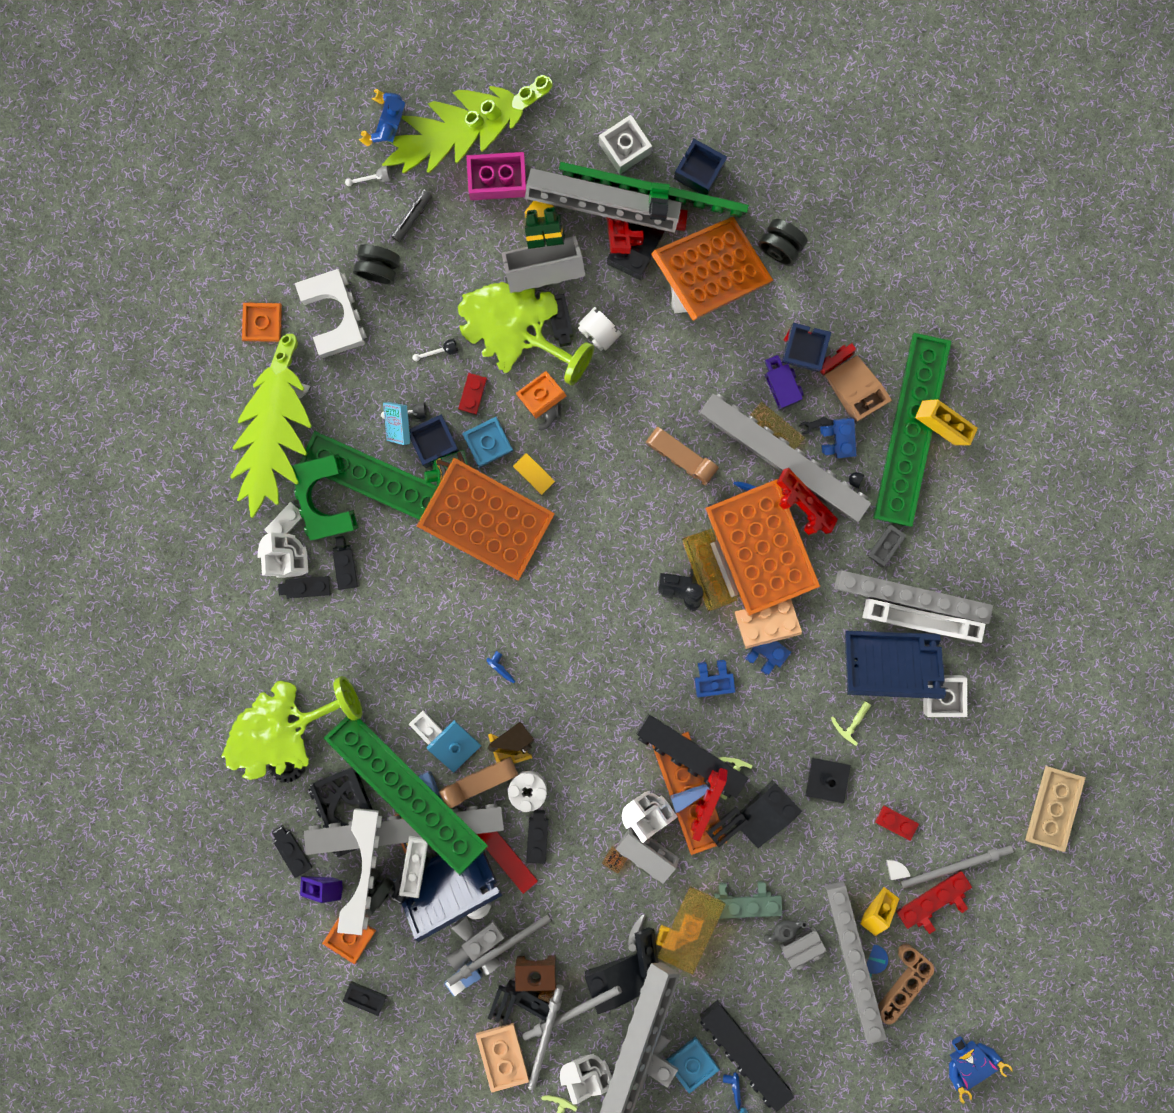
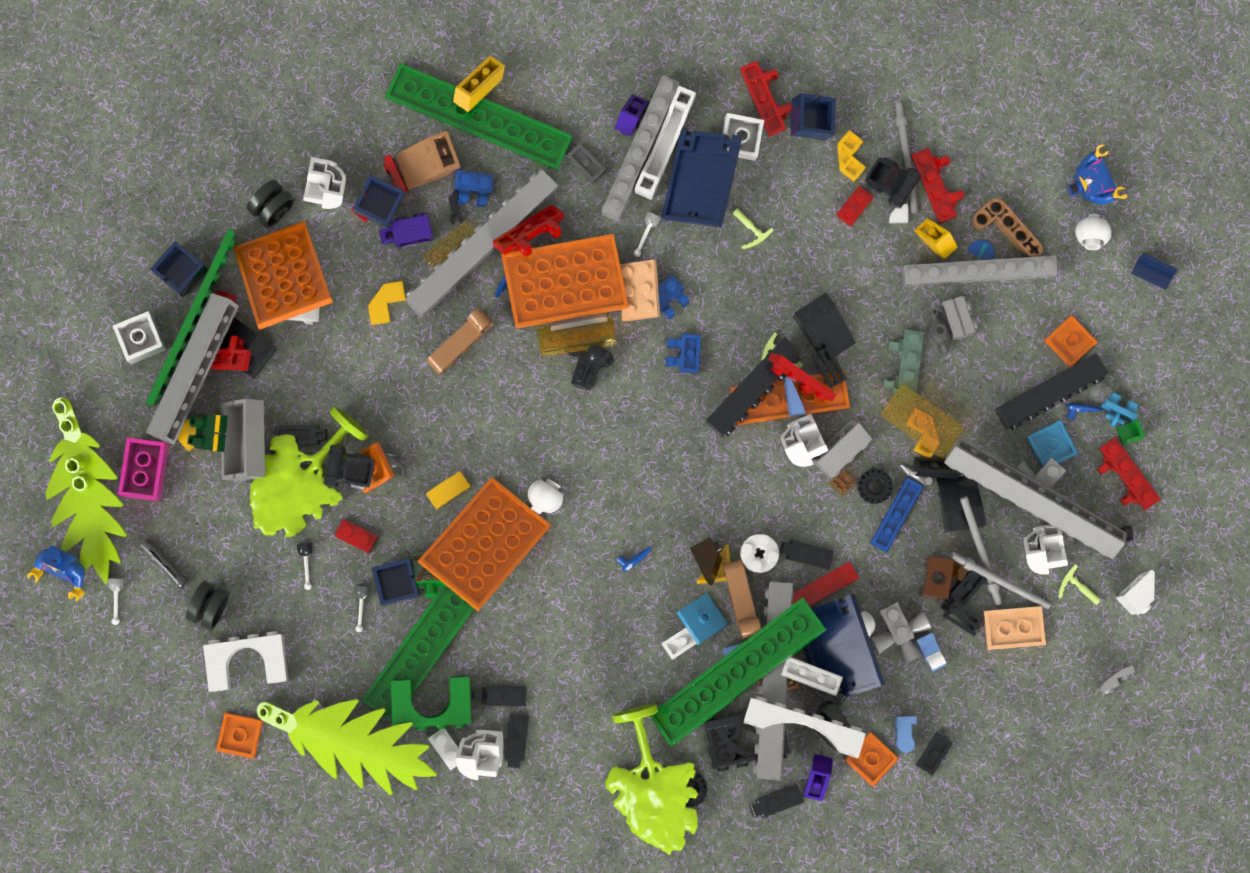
camera: 85 degrees left, 5 degrees down
(379, 965) = (903, 732): none -> medium blue leg
(396, 423) = (371, 614): medium azure tile -> none
(466, 971) = (922, 644): light grey bar -> none
(487, 442) = (407, 530): dark azure plate -> none
(533, 371) = (347, 468): none -> black piece
(545, 569) = (545, 496): none -> white plant
(593, 920) = (896, 514): none -> blue tile
(599, 328) = (318, 397): white brick -> none
(622, 904) = (886, 486): none -> black tyre
(658, 201) = (207, 313): leg -> none
(716, 376) = (387, 294): none -> yellow tile
(802, 1066) = (1070, 341): none -> orange tile
(814, 291) = (325, 183): none -> white brick
(827, 780) = (802, 263): black tile -> none
(840, 621) = (651, 221): none -> hinge
(855, 479) = (516, 180): black hinge -> none
(919, 1073) = (1094, 231): none -> white plant
(930, 858) = (889, 178): none -> black piece
(938, 809) = (847, 163): none -> yellow tile
(944, 581) = (631, 115): none -> dark purple slope
(977, 765) = (813, 119): none -> dark blue piece
(1000, 703) = (758, 87): none -> red hinge
(1055, 808) = (867, 55): tan plate -> none

